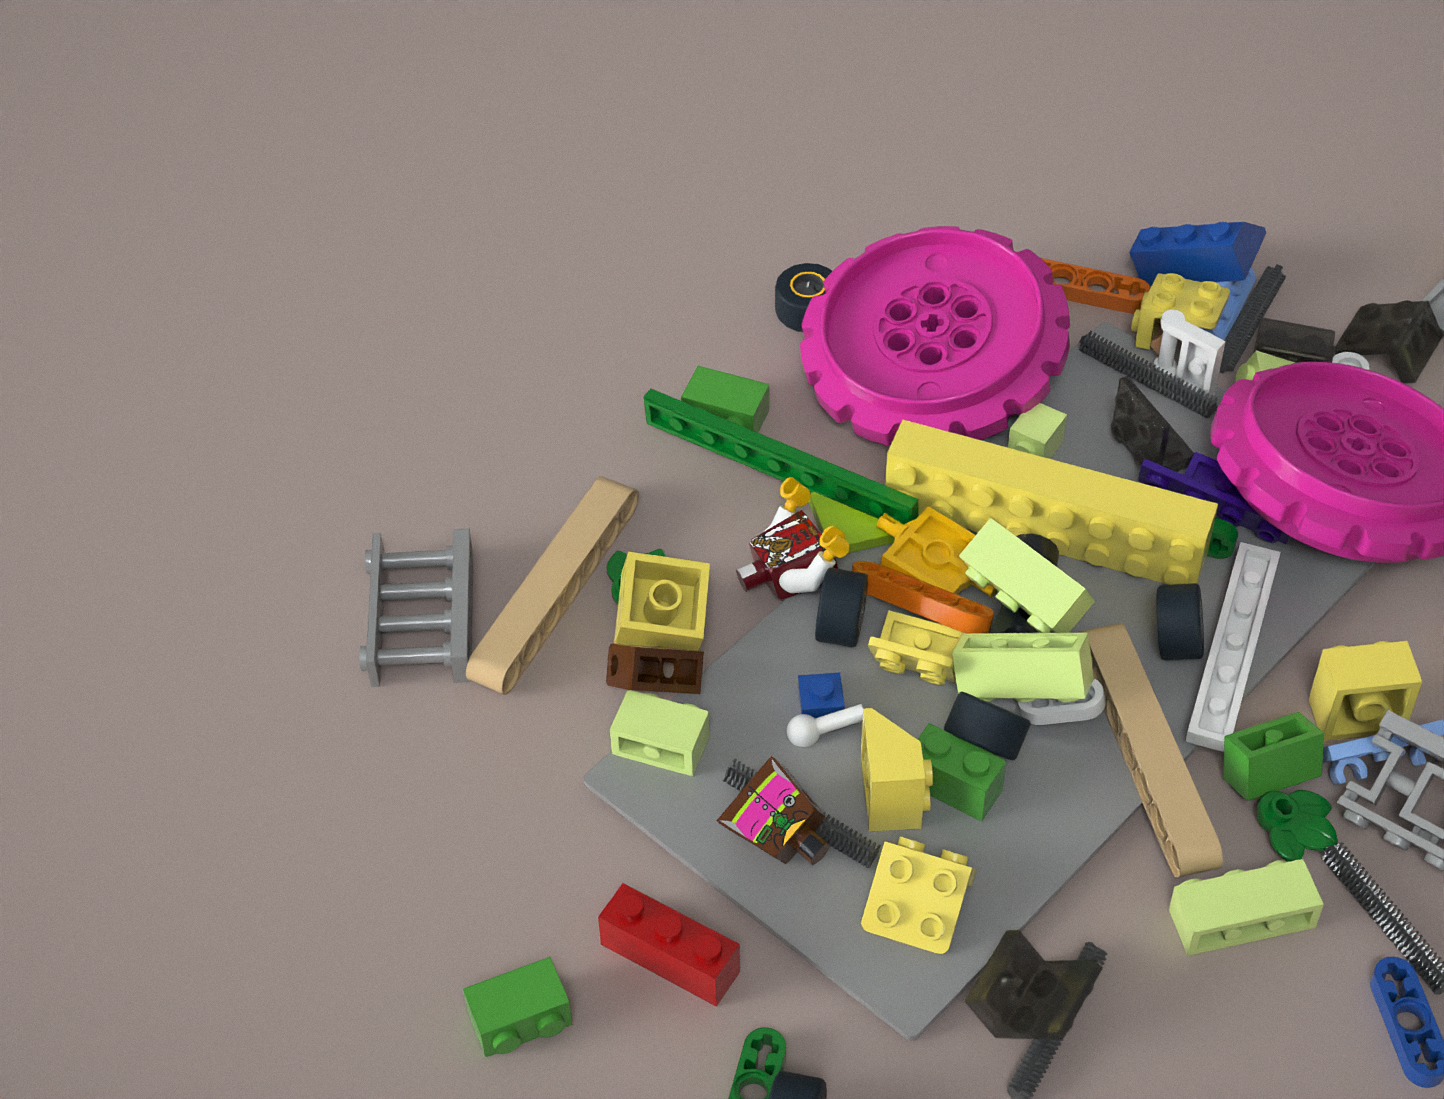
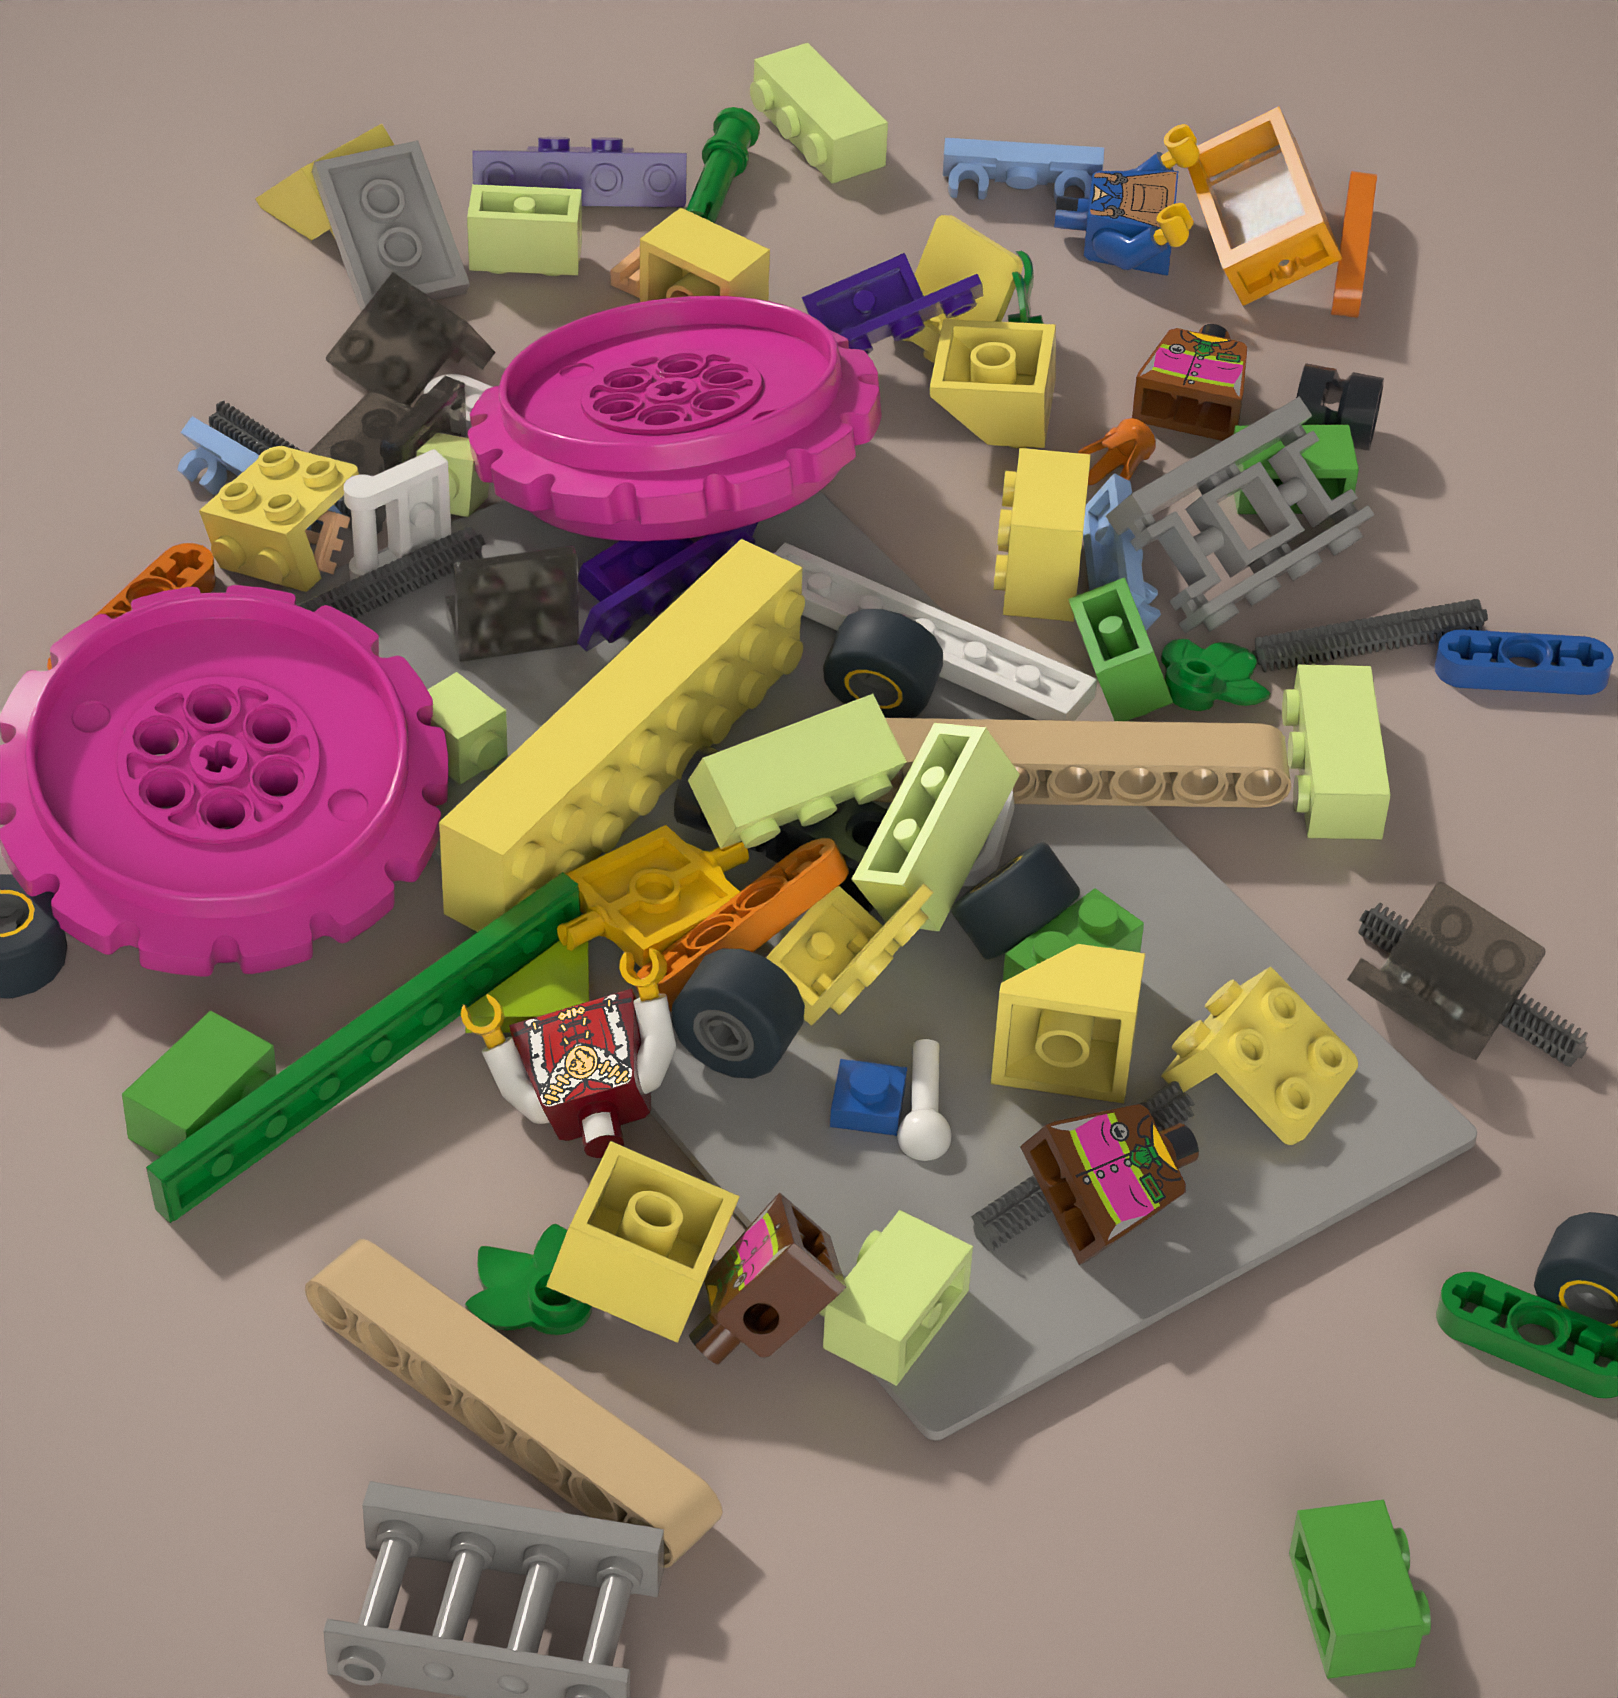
camera: 80 degrees left, 5 degrees down
(669, 944) = (1282, 1372): red brick -> none
(1198, 251) = (171, 462): blue slope -> none

